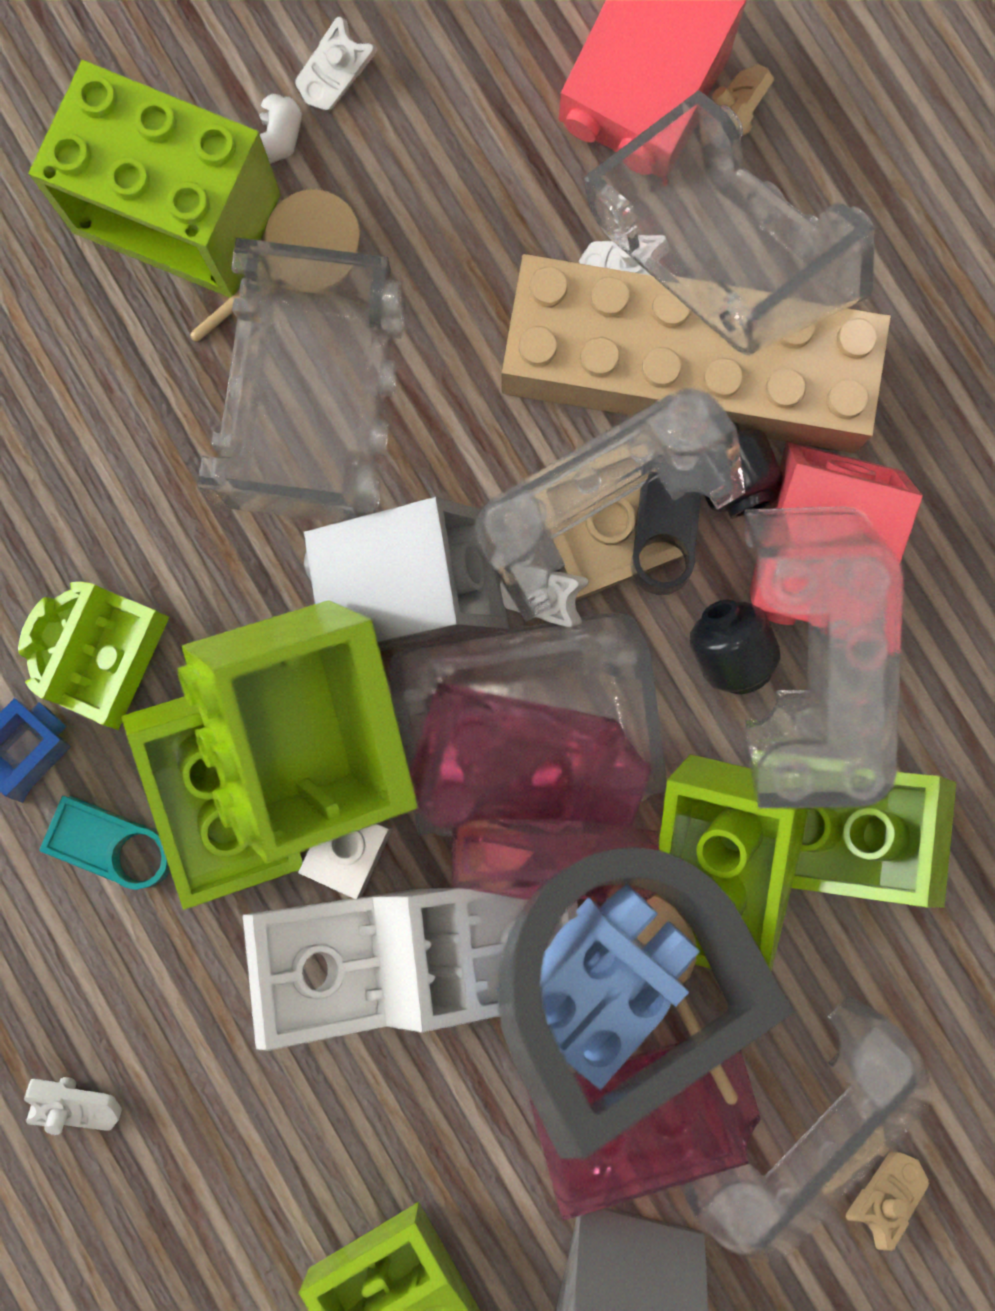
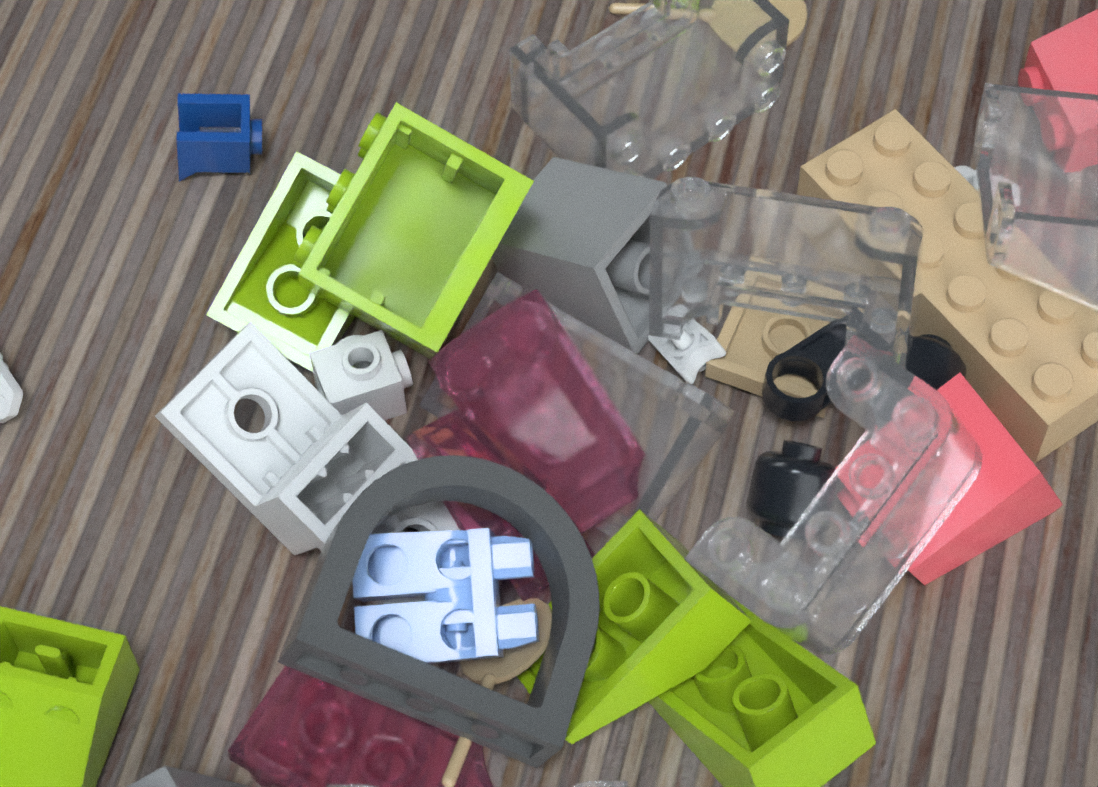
camera: 45 degrees right, 25 degrees down
(90, 650) = (325, 115): lime slope -> none
(94, 839) = (198, 238): teal piece -> none

